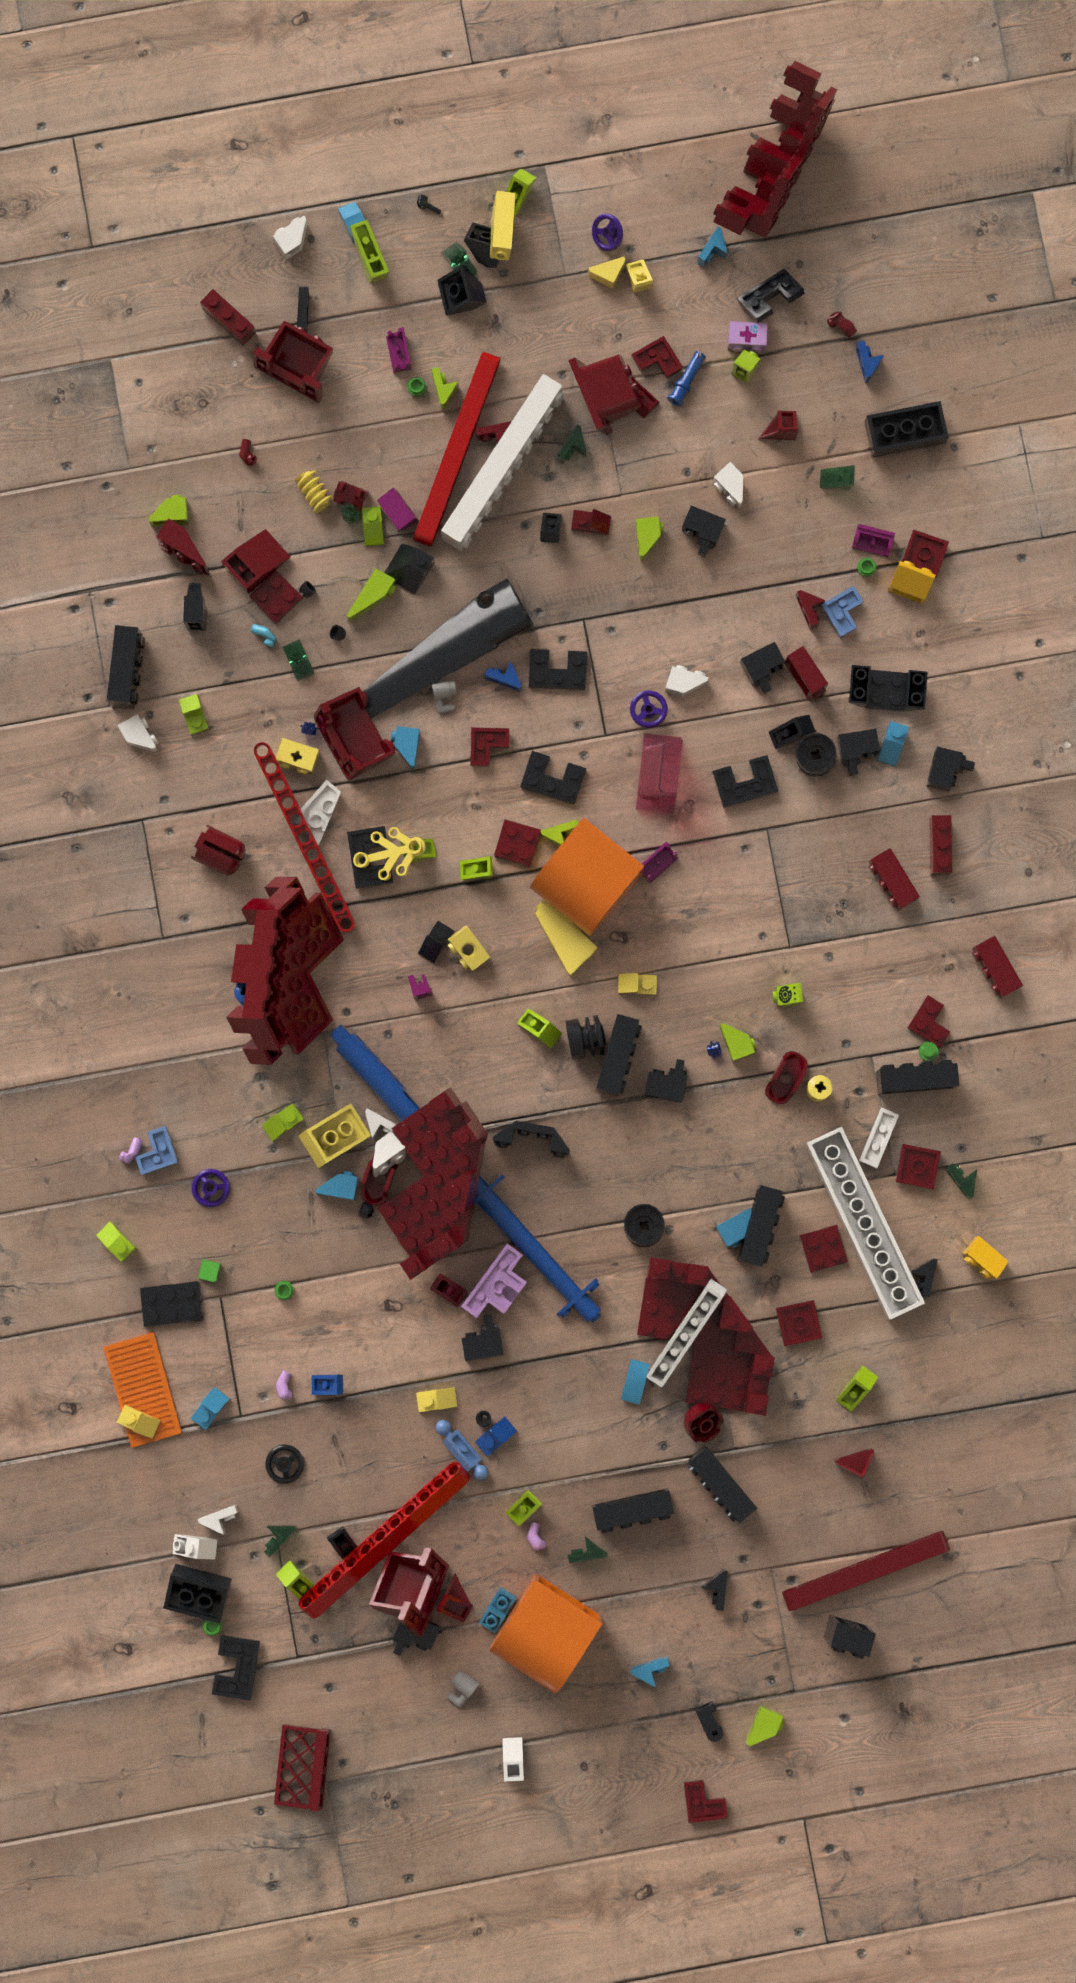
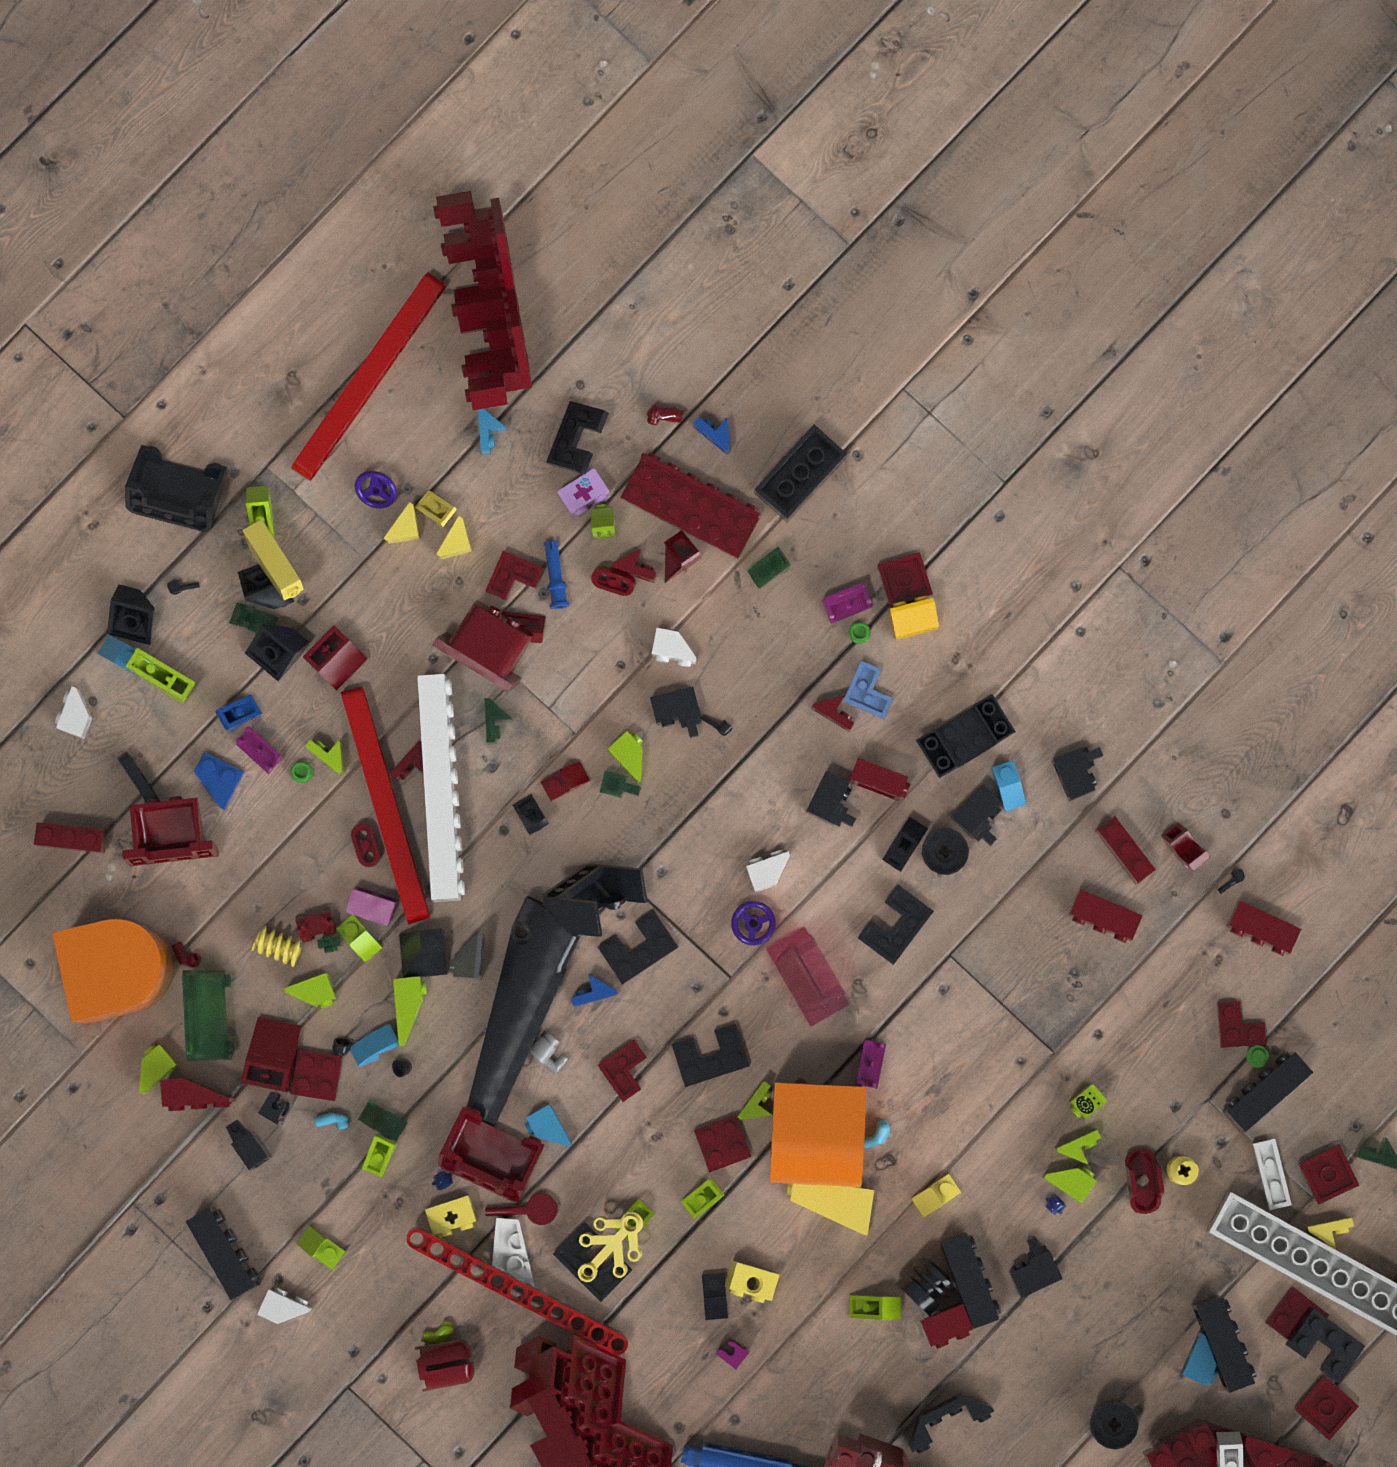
camera: 30 degrees left, 0 degrees up
(190, 421) = (112, 969): none -> orange brick
(229, 594) = (273, 1110): none -> black hinge
(230, 499) = (206, 1015): none -> clear green windscreen
(234, 831) = (440, 1335): none -> lime arm
(279, 679) = (379, 1155): none -> lime slope
(316, 538) = (315, 991): none -> lime slope
(332, 603) = (373, 1044): none -> dark azure slope
(357, 350) = (218, 778): none -> blue wing
(360, 796) = (540, 1209): none -> dark red piece
(378, 197) = (131, 615): none -> black slope
(402, 315) = (238, 713): none -> blue slope
(423, 467) = (366, 845): none -> dark red plate
(438, 593) = (469, 959): none -> dark grey slope
(468, 135) = (173, 491): none -> black windscreen
(496, 325) = (335, 657): none -> dark red slope
(546, 603) = (580, 895): none -> black windscreen
(579, 1073) = (946, 1325): none -> dark red brick
(623, 549) = (615, 784): none -> clear green plate
(627, 916) = (879, 1136): none -> medium azure arm
(635, 307) = (455, 542): none -> light yellow slope
(659, 154) = (368, 376): none -> red beam
(724, 411) = (613, 580): none -> dark red plate
(724, 564) = (724, 728): none -> black hand
(742, 407) = (629, 565): none -> dark red slope
(754, 1020) = (1073, 1148): none -> lime slope
(815, 398) = (691, 505): none -> dark red bracket
(834, 1264) = (1316, 1328): none -> black plate
(886, 1202) = (1324, 1230): none -> light yellow slope
(983, 872) = (1185, 847): none -> dark red brick
(1005, 920) = (1238, 876): none -> black hand

